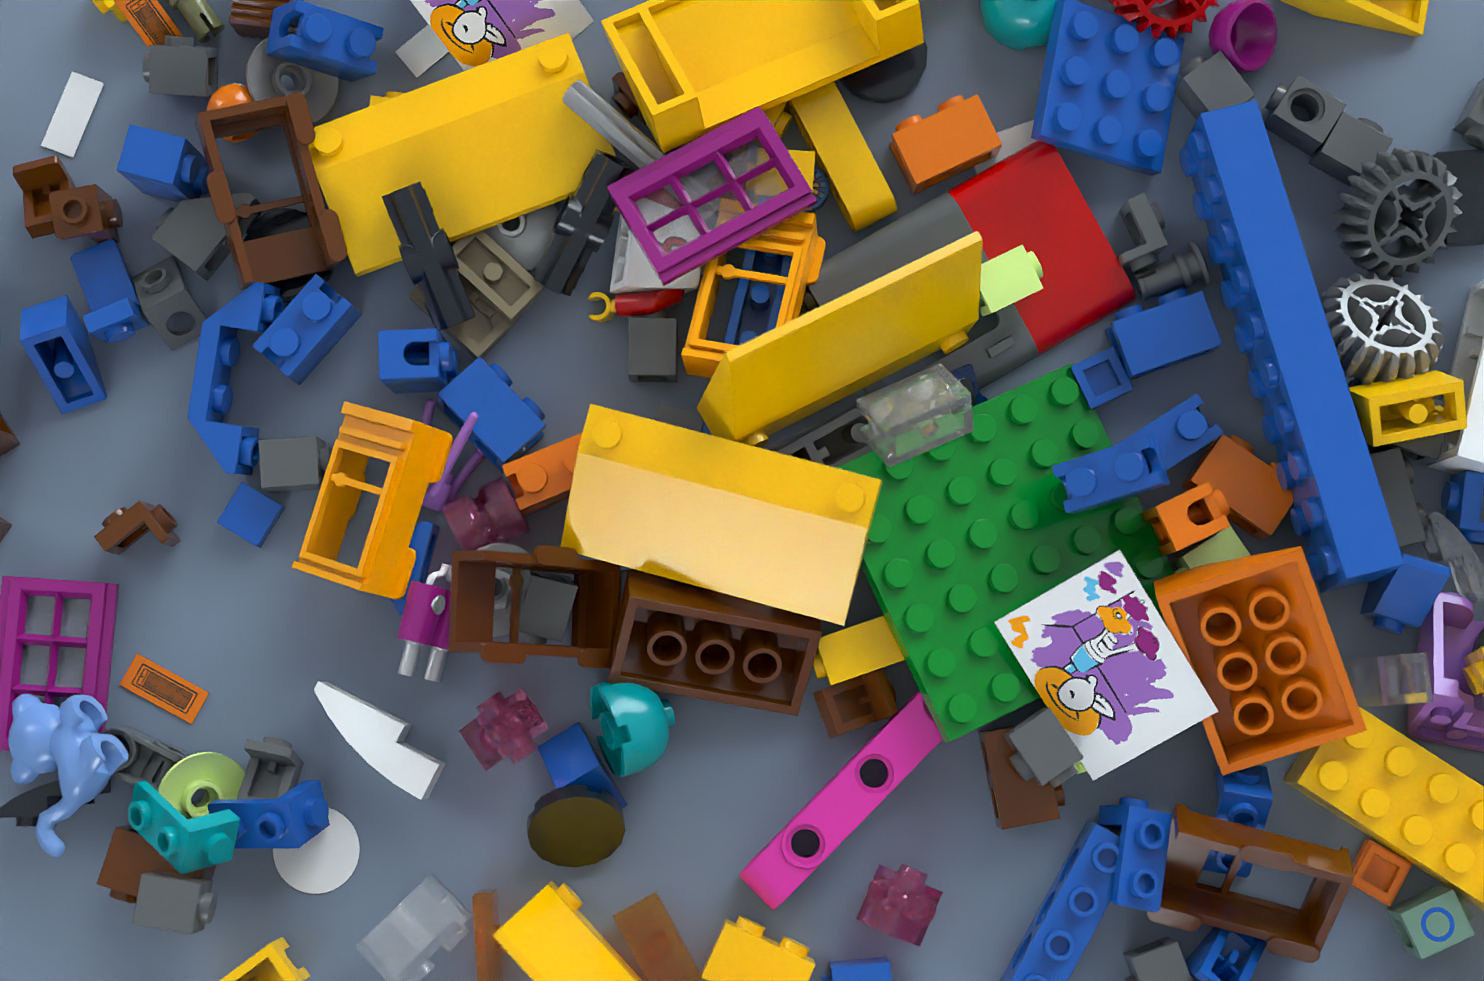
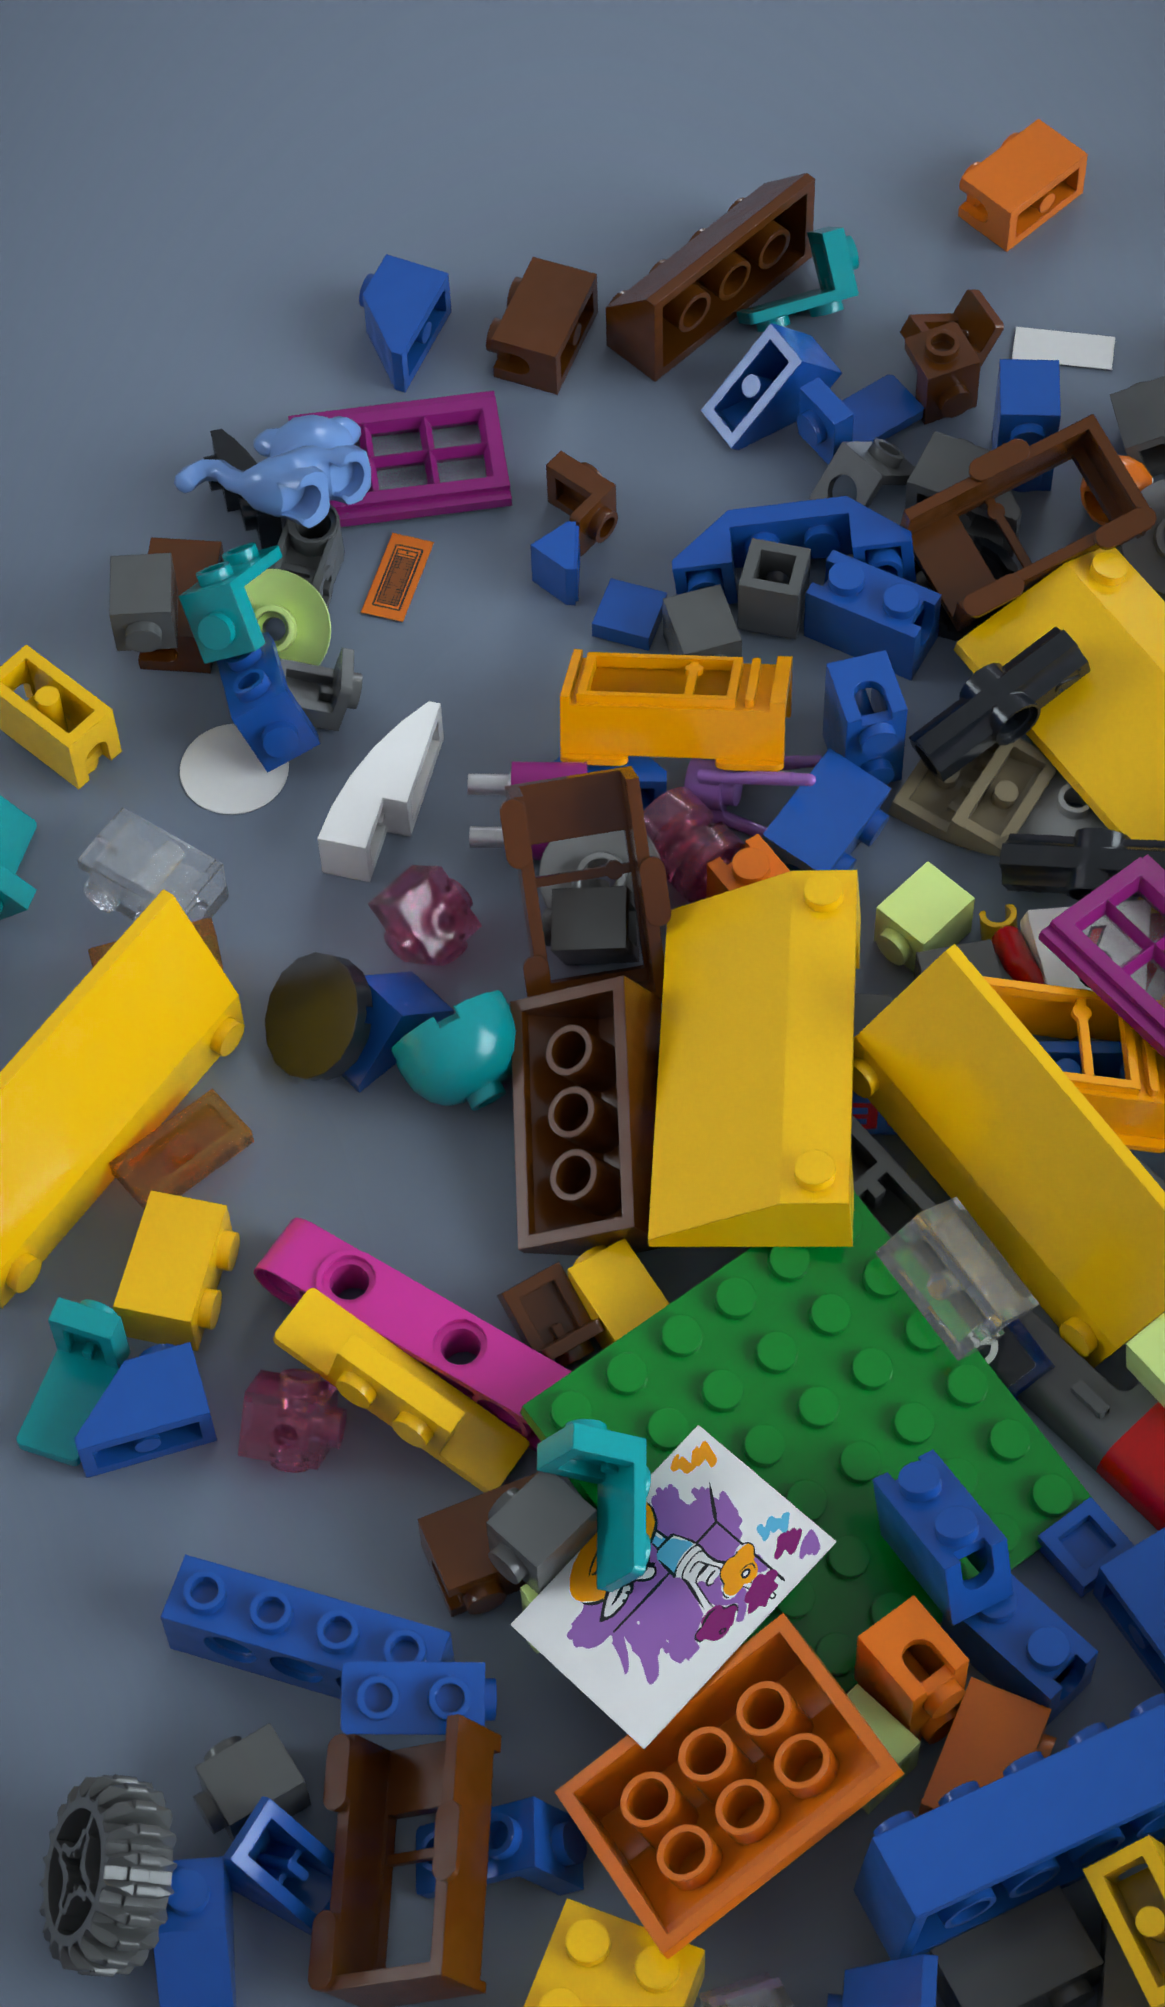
camera: 80 degrees right, 25 degrees down
(194, 560) = (557, 562): none -> blue slope
(267, 398) = (773, 588): none -> dark grey brick
(589, 362) = (922, 916): none -> yellowish green brick
(895, 825) = (400, 1391): none -> yellow bracket
(1044, 688) = (619, 1467): none -> teal bracket

